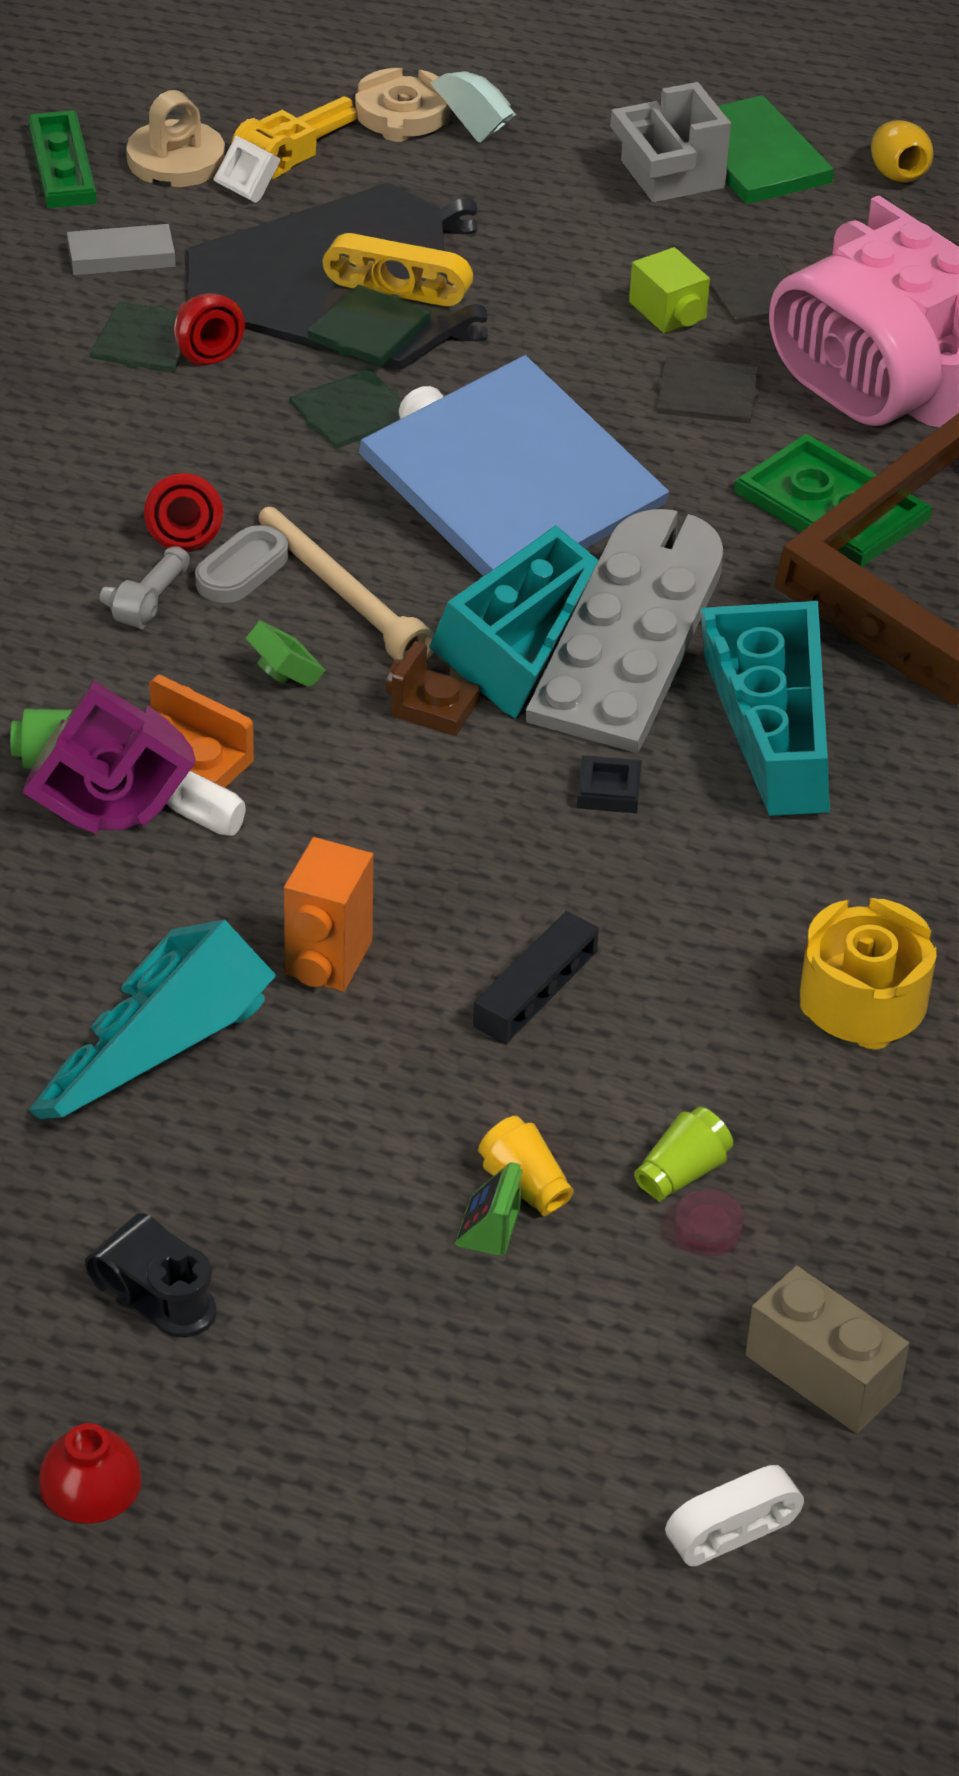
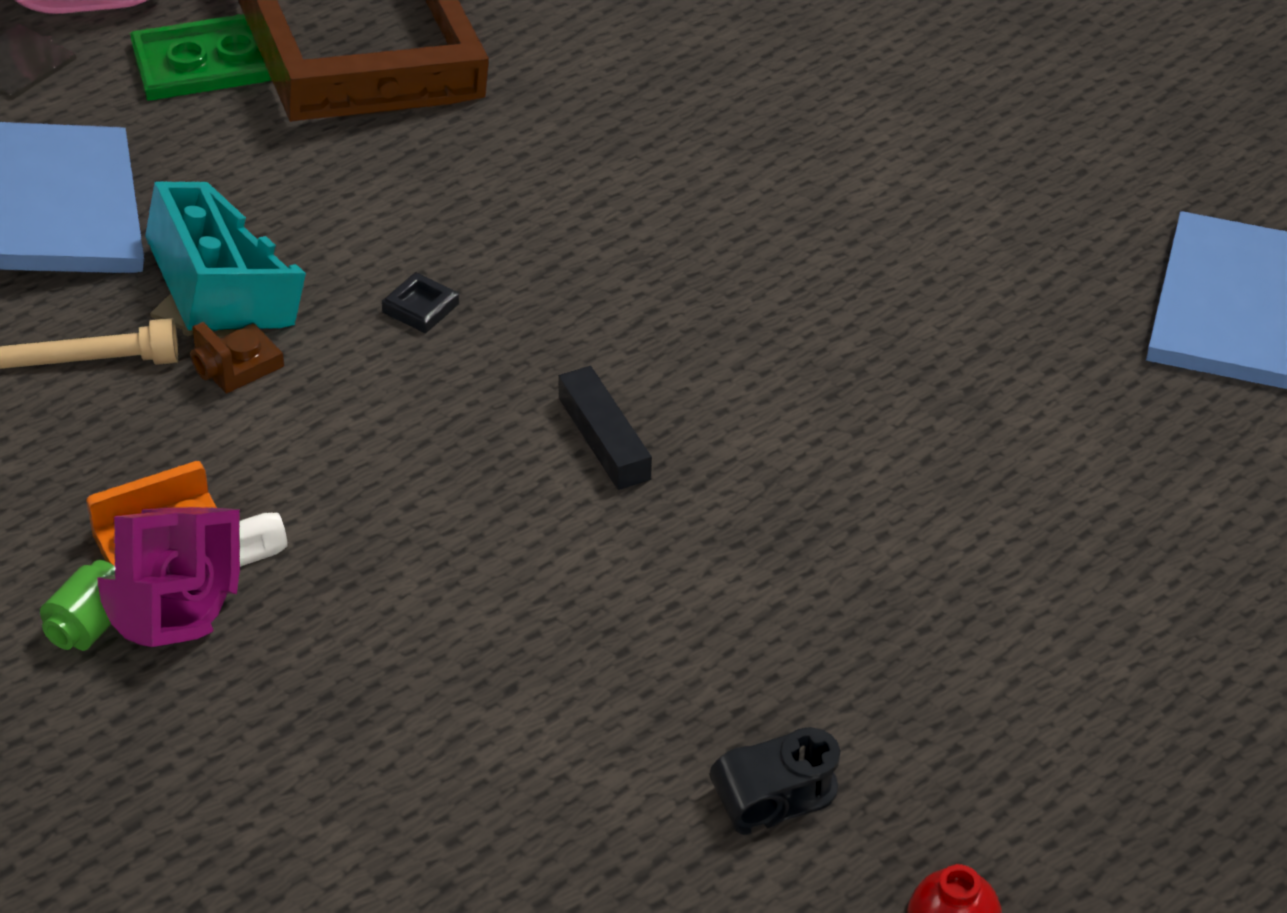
camera: 60 degrees left, 0 degrees up
(180, 995) = (485, 662): teal wedge -> none
(284, 655) = (112, 422): bright green plate -> none
(328, 914) = (475, 503): orange brick -> none
(492, 1213) = (837, 550): bright green slope -> none
(521, 1143) = (801, 513): yellow cone -> none
(629, 630) = (278, 203): light grey plate -> none
(685, 1153) = (848, 422): lime cone -> none
(708, 1222) = (916, 442): clear pink tile -> none
(734, 1514) = (1210, 542): white beam -> none
(773, 695) = (430, 168): teal wedge -> none
(826, 1349) = (1091, 425): dark tan brick -> none
(867, 971) = (749, 246): yellow brick -> none

